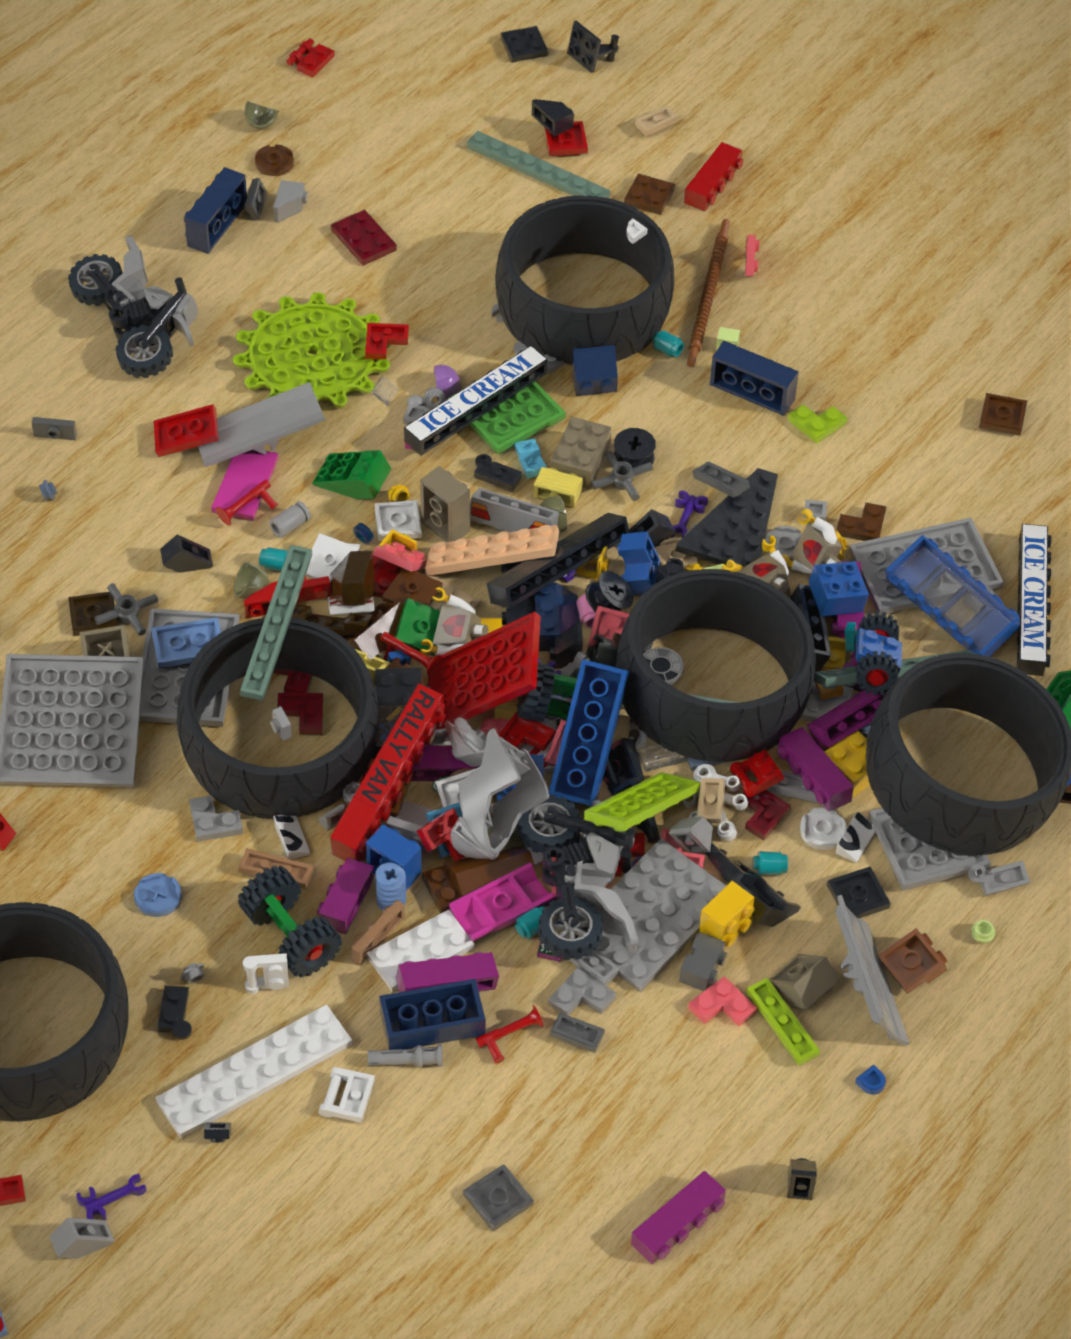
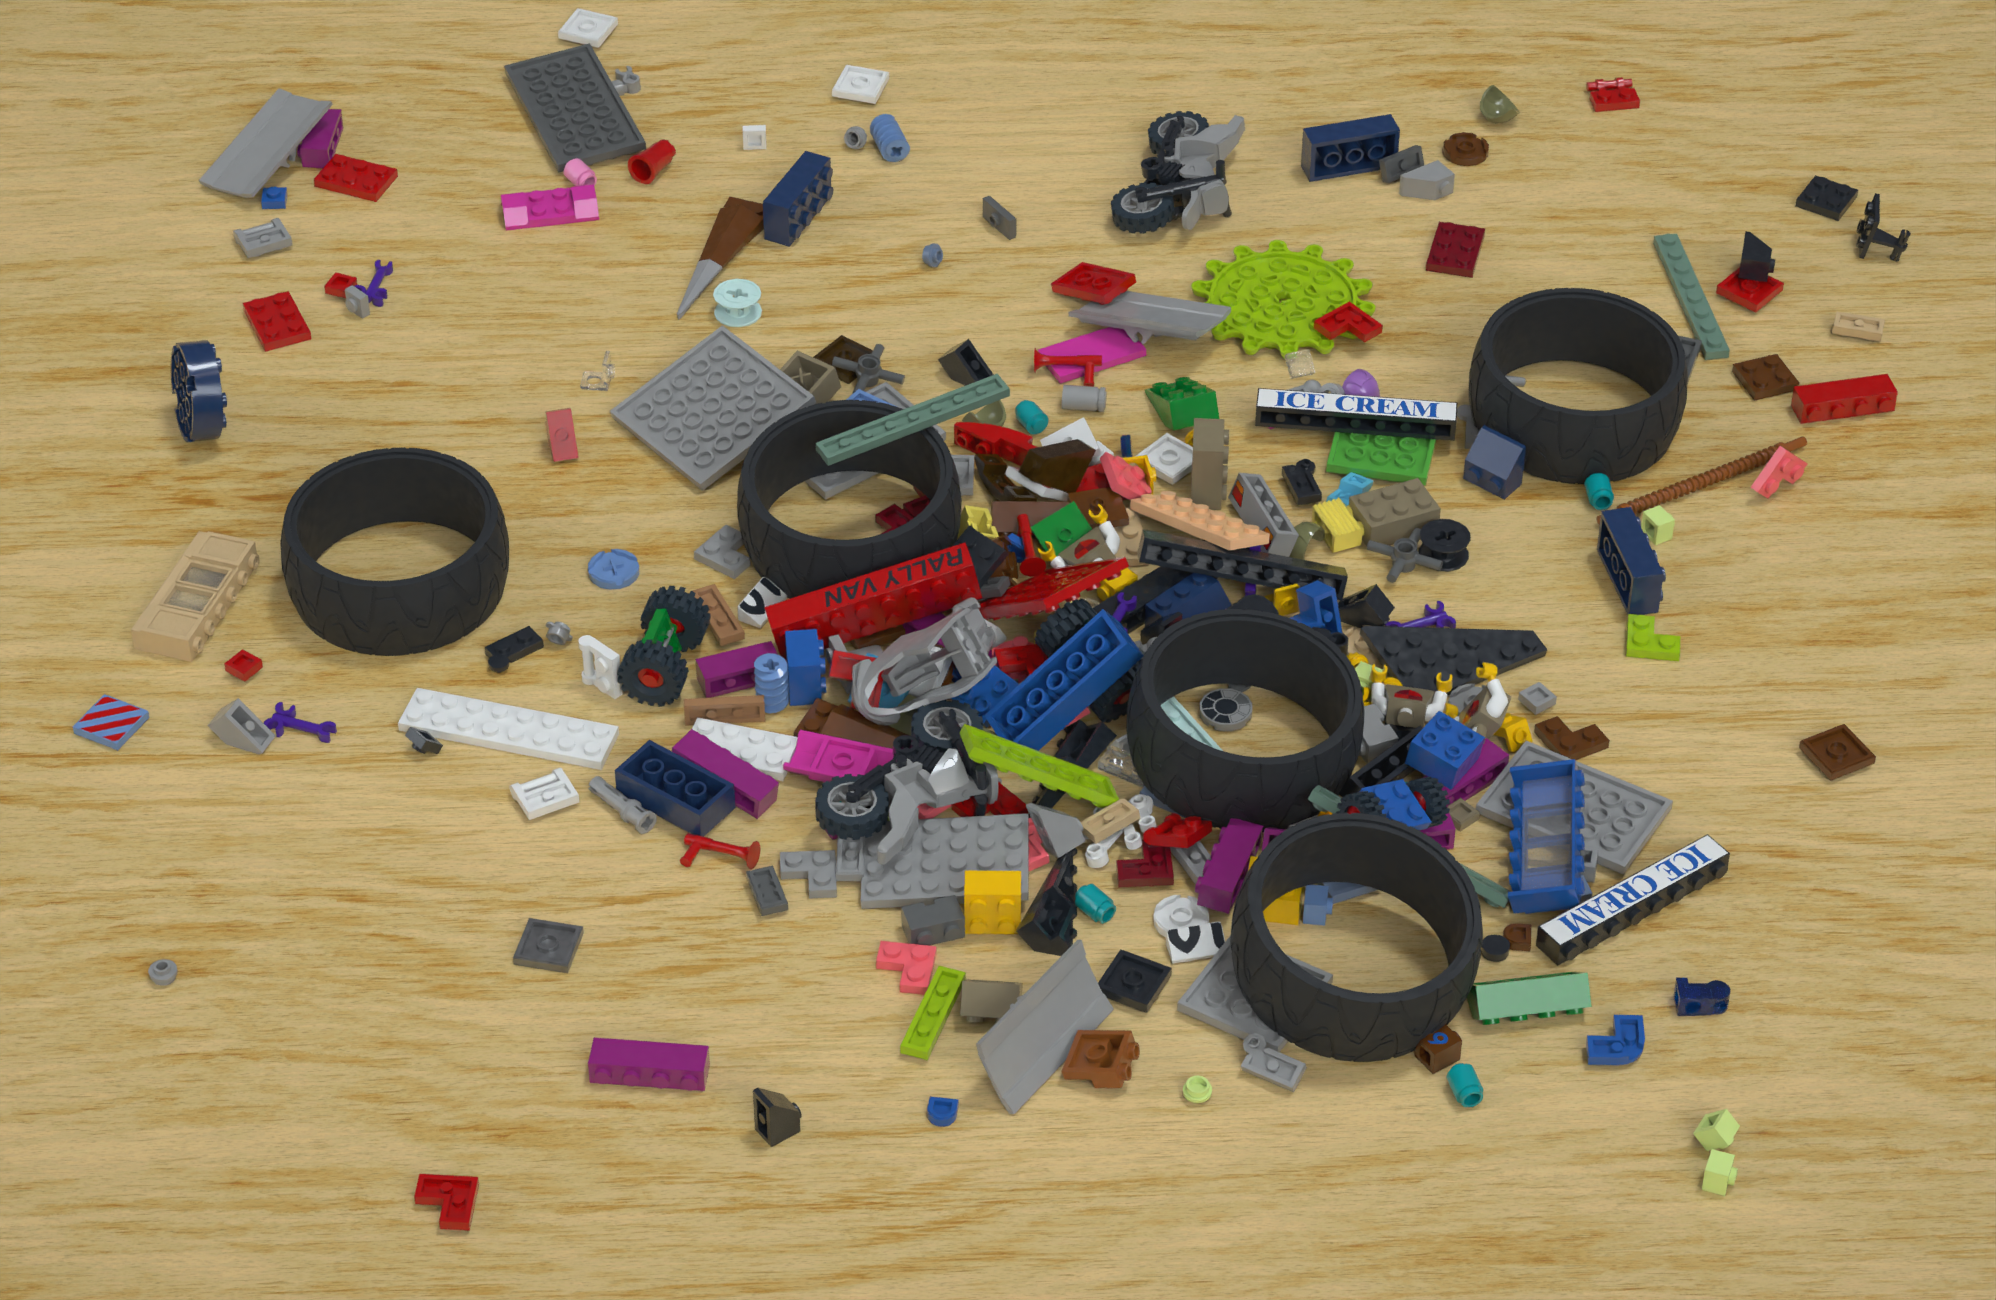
camera: 50 degrees right, 10 degrees down
(281, 724) = (814, 487): light grey plate -> none
(635, 231) = (1652, 362): white tile -> none
(721, 479) = (1482, 613): dark grey plate -> none

